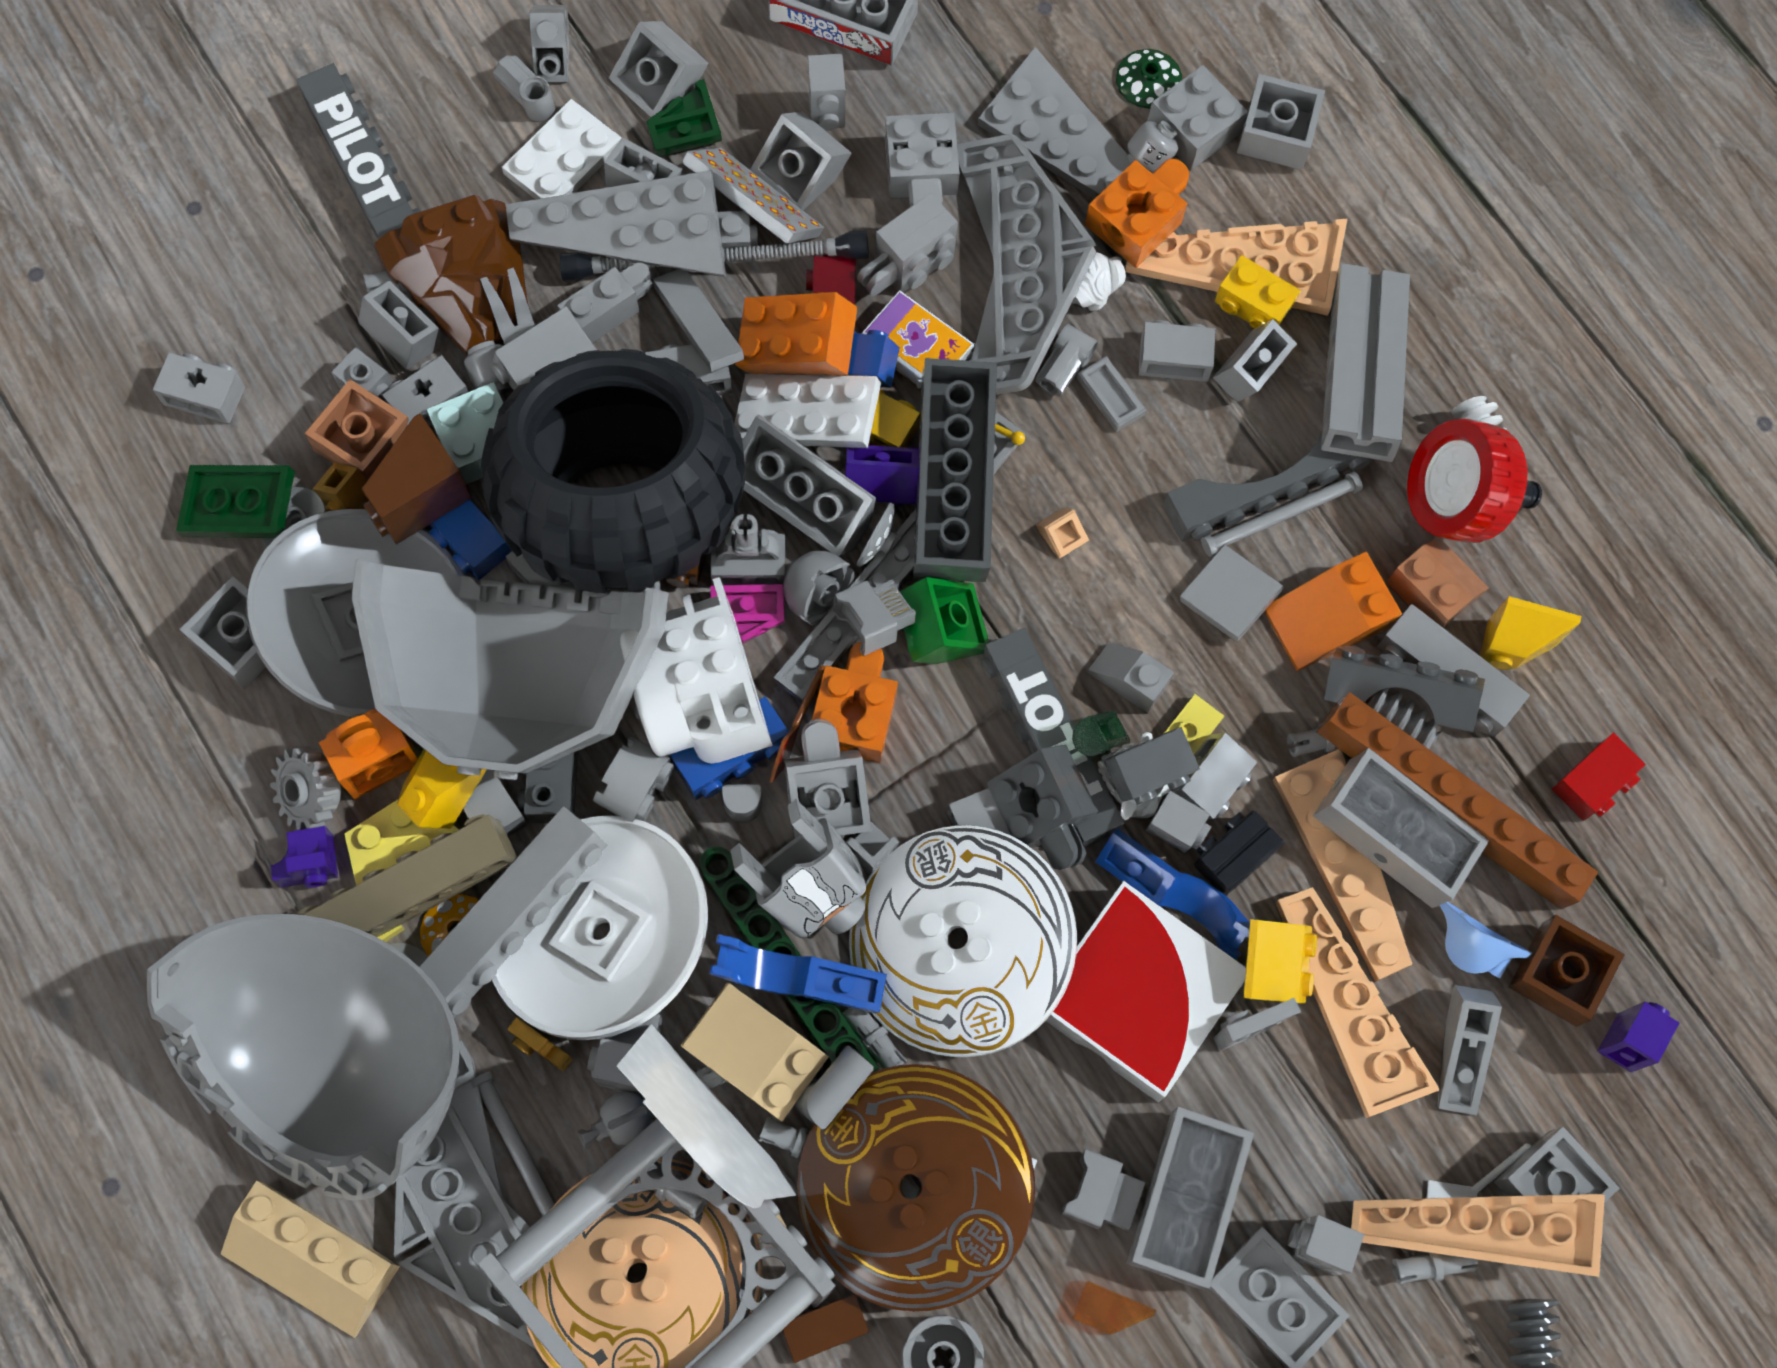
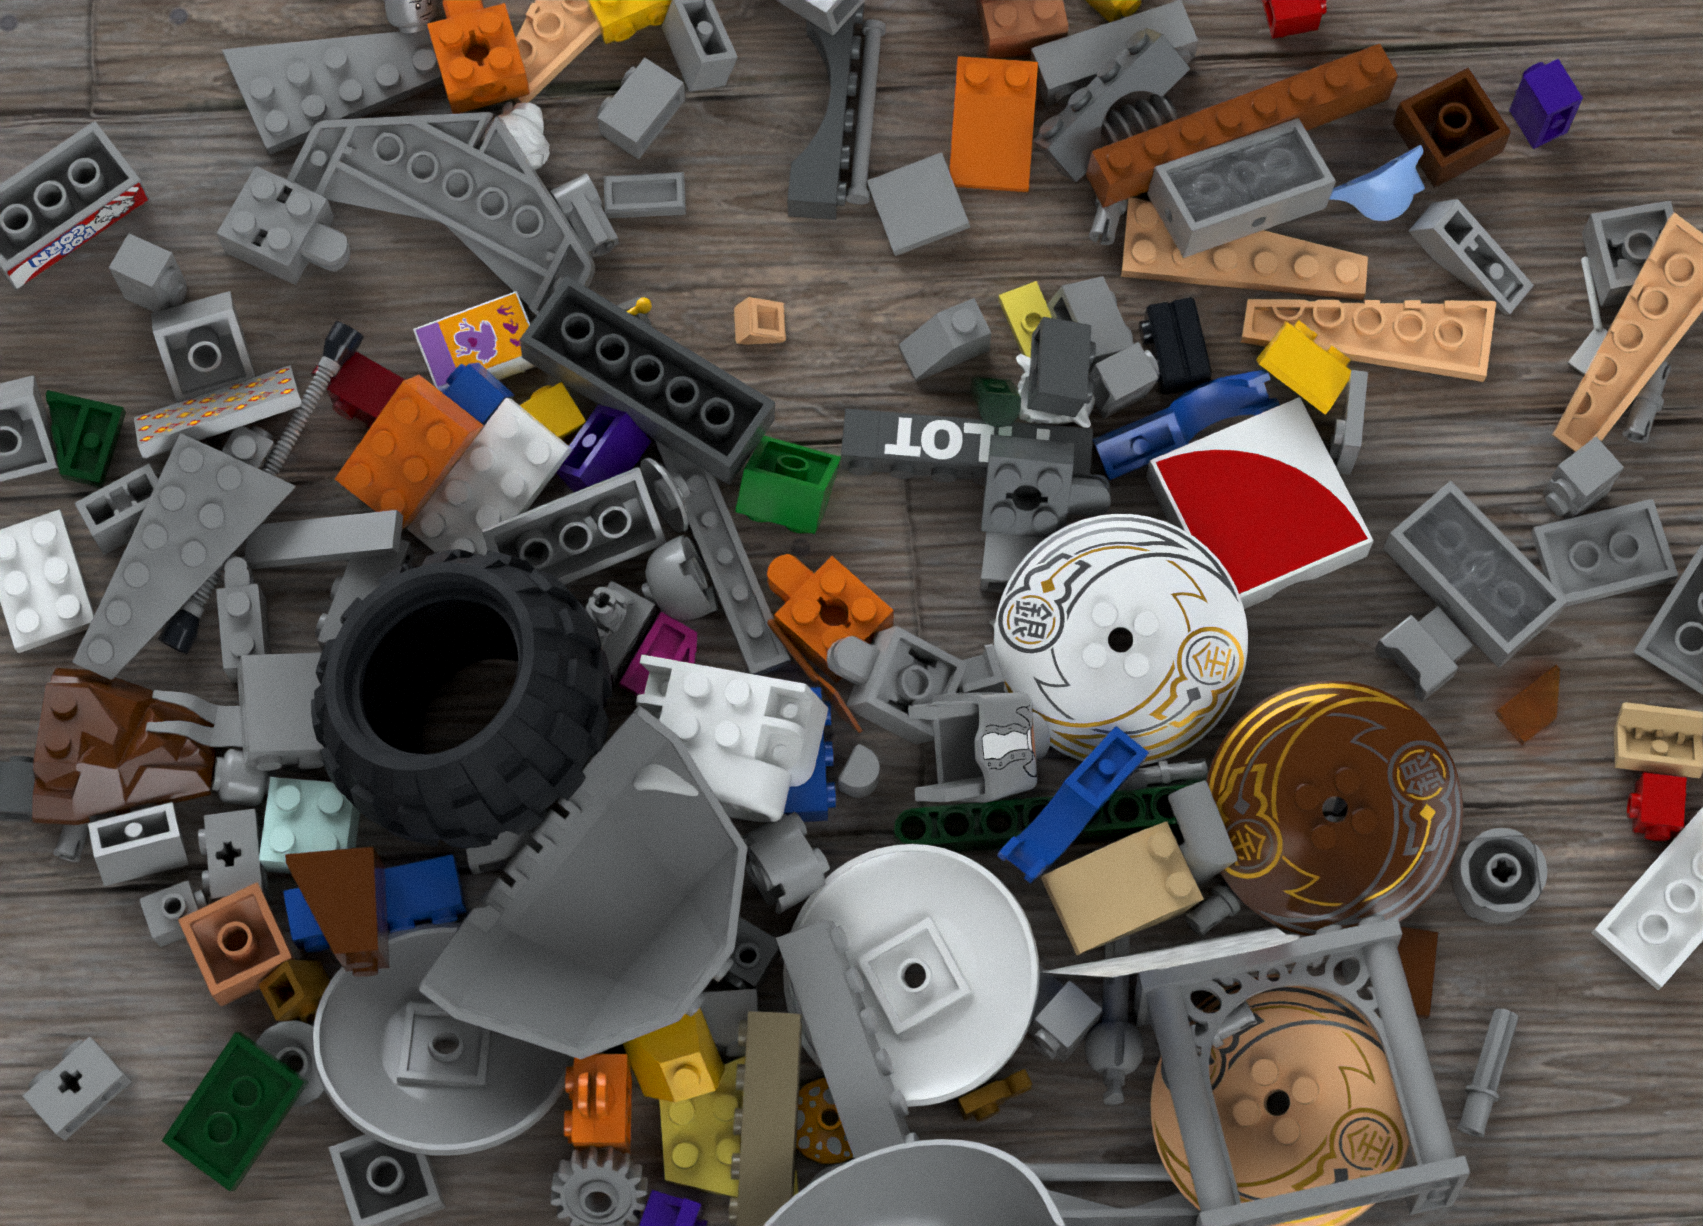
camera: 55 degrees left, 0 degrees up
(873, 613) = (749, 540): light grey piece -> none
(911, 247) = (378, 288): light grey brick -> none

